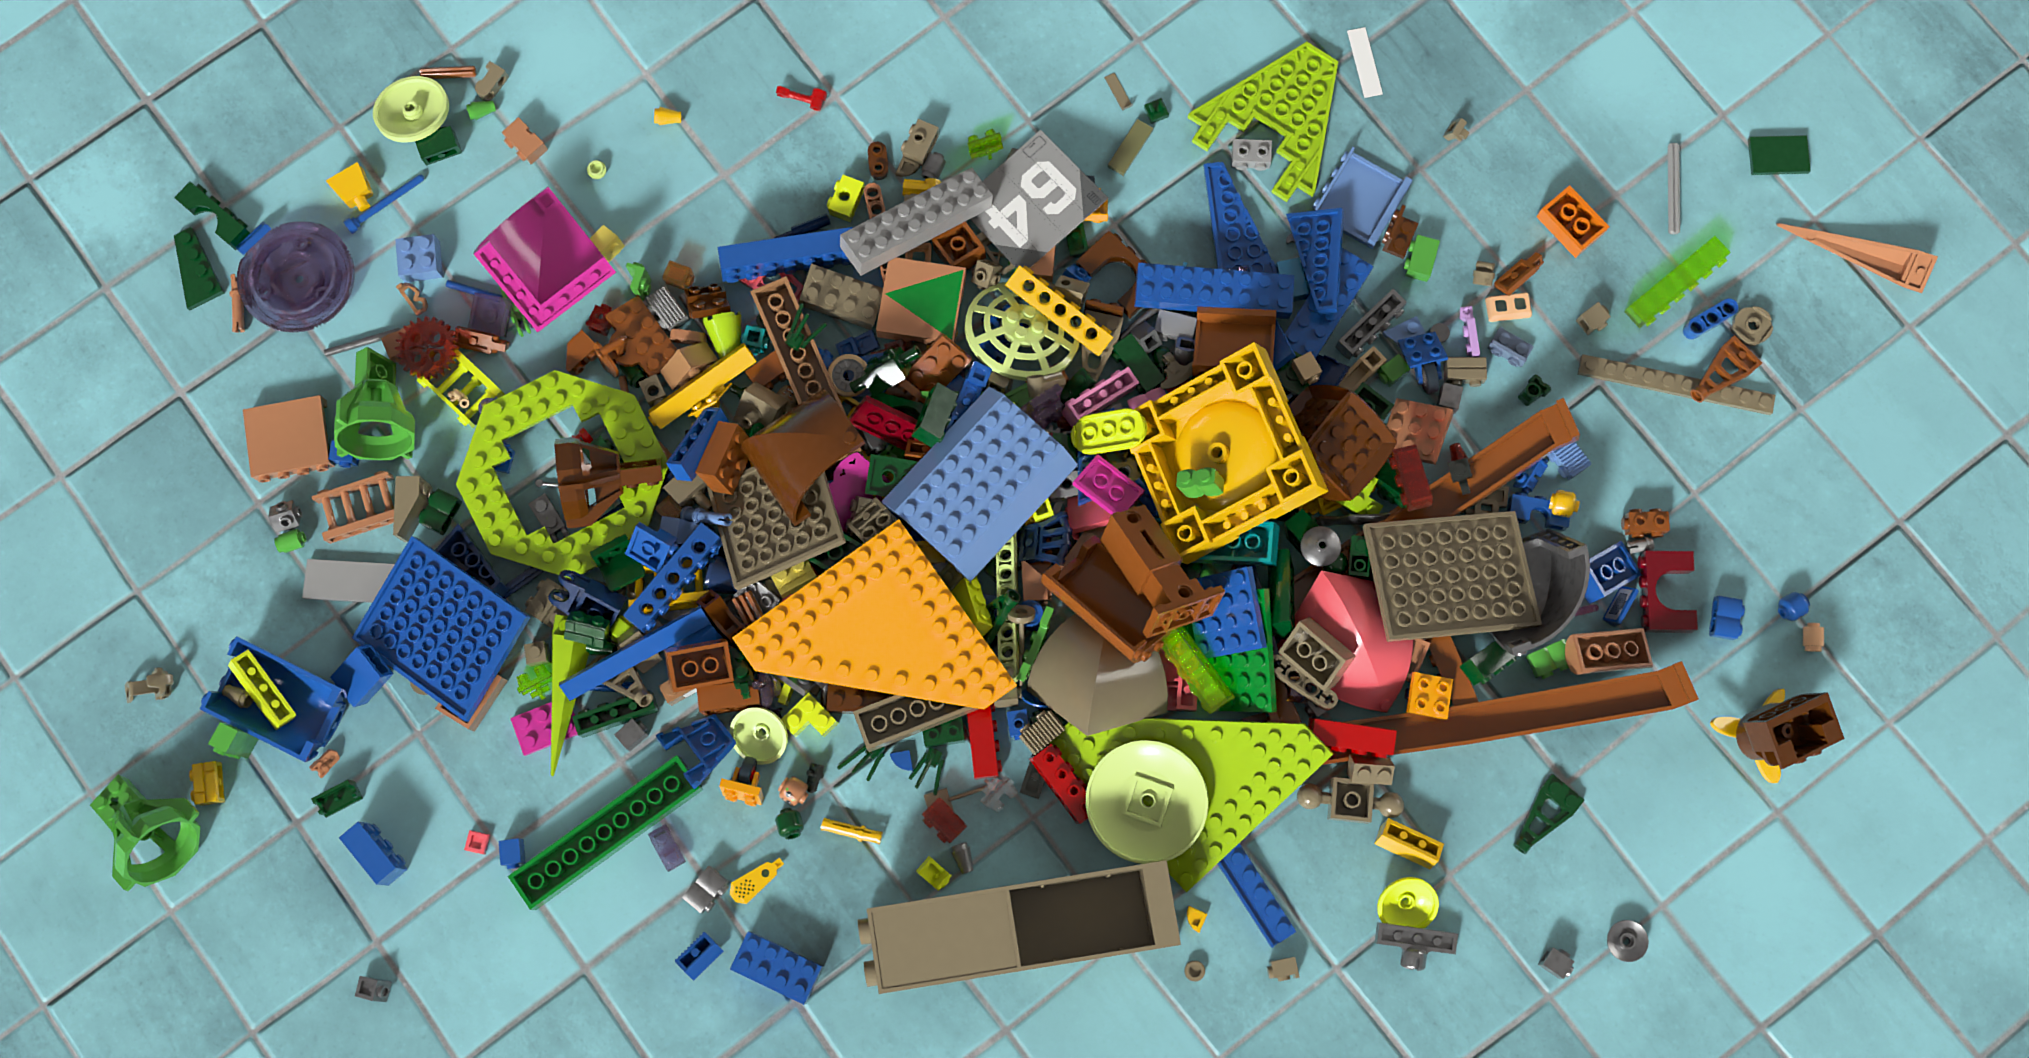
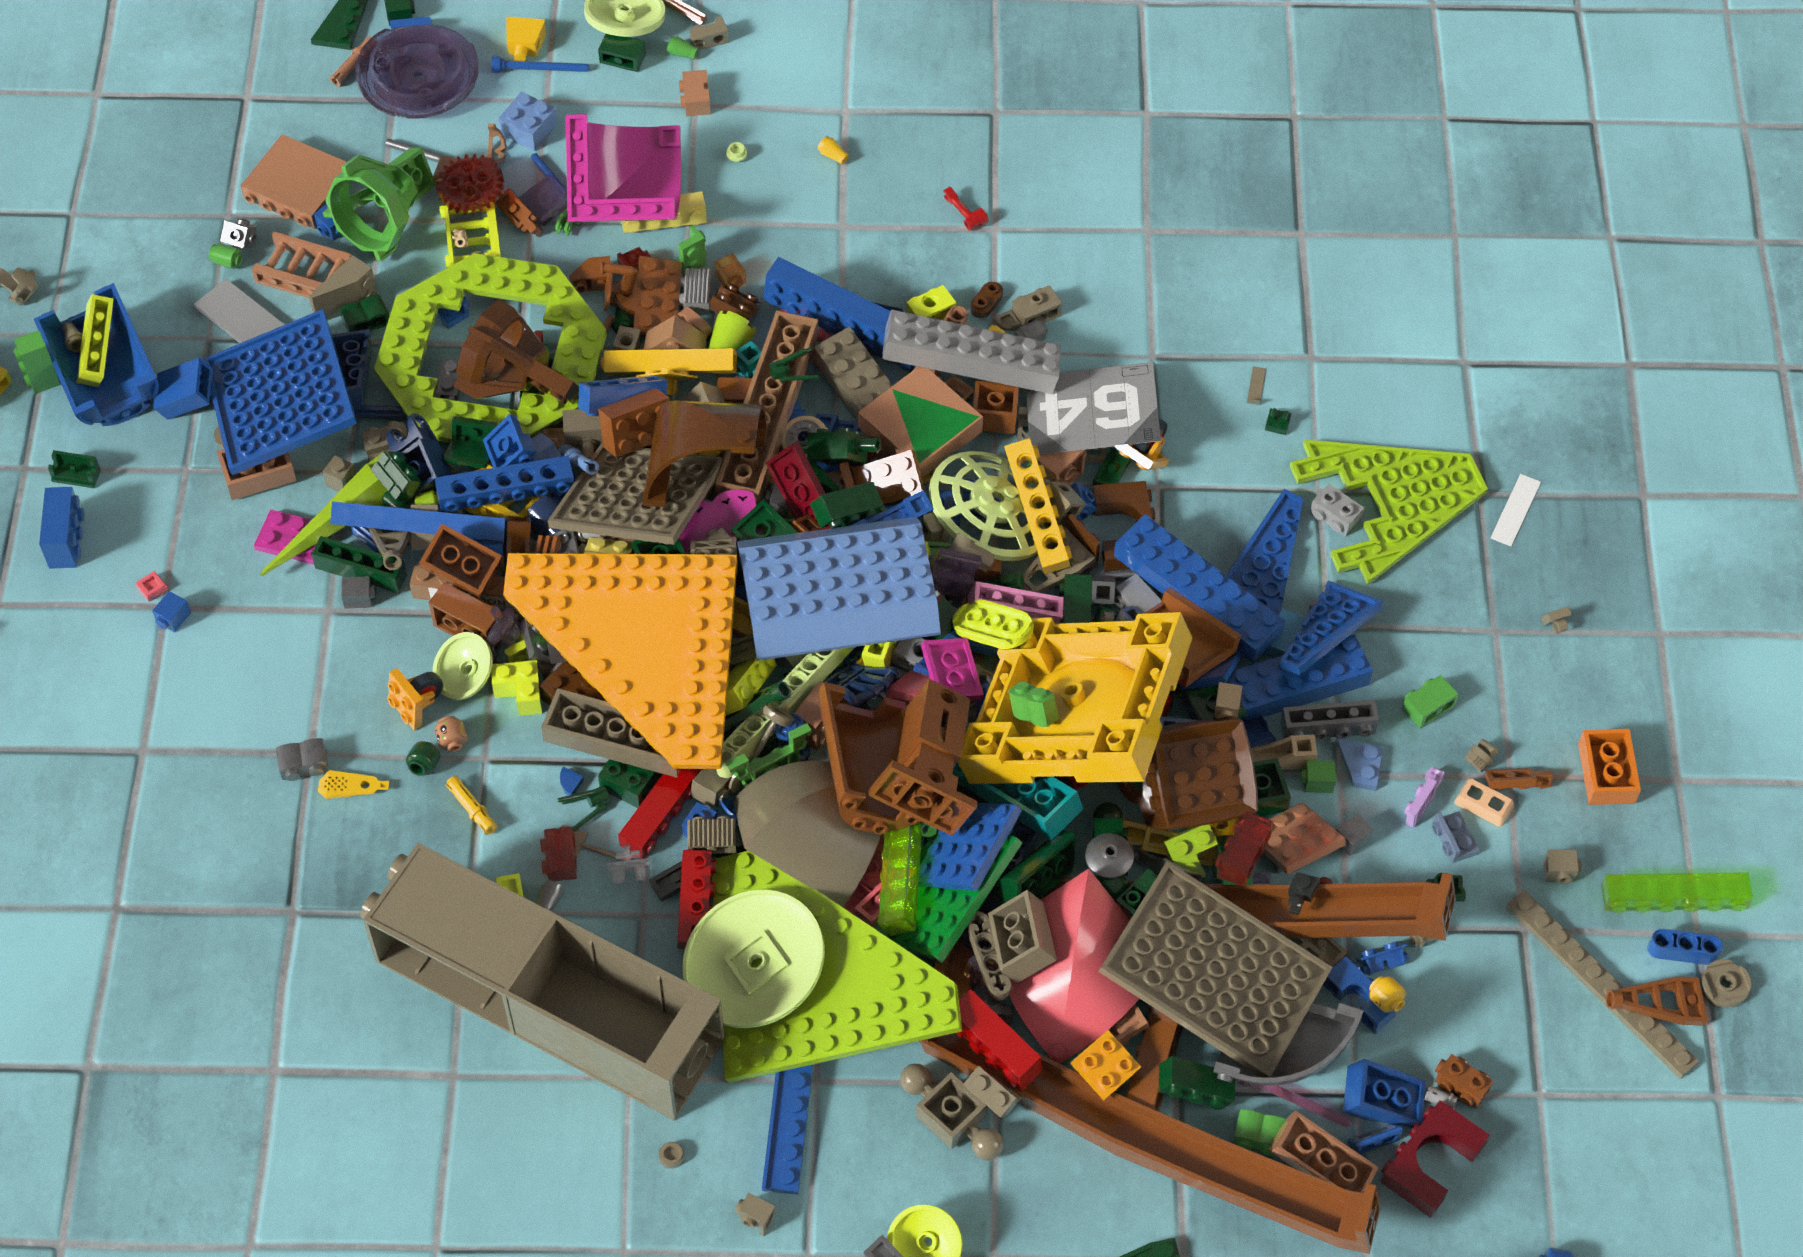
camera: 35 degrees right, 20 degrees down
(325, 762) = (91, 437): nougat piece -> none
(527, 685) = (315, 498): clear neon green hips -> none
(603, 834) = (262, 650): green brick -> none
(666, 847) = (301, 702): clear purple slope -> none
(699, 956) = (245, 804): blue brick -> none
(707, 740) = (411, 641): blue wing -> none
(742, 672) = (491, 597): dark green hinge -> none
(776, 967) = (302, 866): blue brick -> none
(814, 774) = (483, 736): pearl dark grey piece -> none
(873, 754) = (551, 753): dark green plant -> none
(985, 146) = (1093, 346): clear neon green hips -> none
(986, 274) = (997, 440): dark tan brick -> none
(1130, 147) = (1227, 434): olive tile -> none
(1195, 918) = (714, 1110): yellow tile -> none
(1365, 194) = (1416, 615): medium blue panel -> none
(1399, 234) = (1424, 662): reddish brown bracket -> none
(1409, 843) = (974, 1190): yellow brick -> none
(1424, 355) = (1359, 772): blue plate -> none
(1442, 331) = (1394, 777): flat silver tile -> none
(1465, 371) = (1391, 823): dark tan brick -> none
(1569, 460) = (1432, 967): medium blue brick -> none
(1673, 189) = (1742, 811): light grey axle -> none
(1726, 618) = (1476, 1225): blue brick -> none

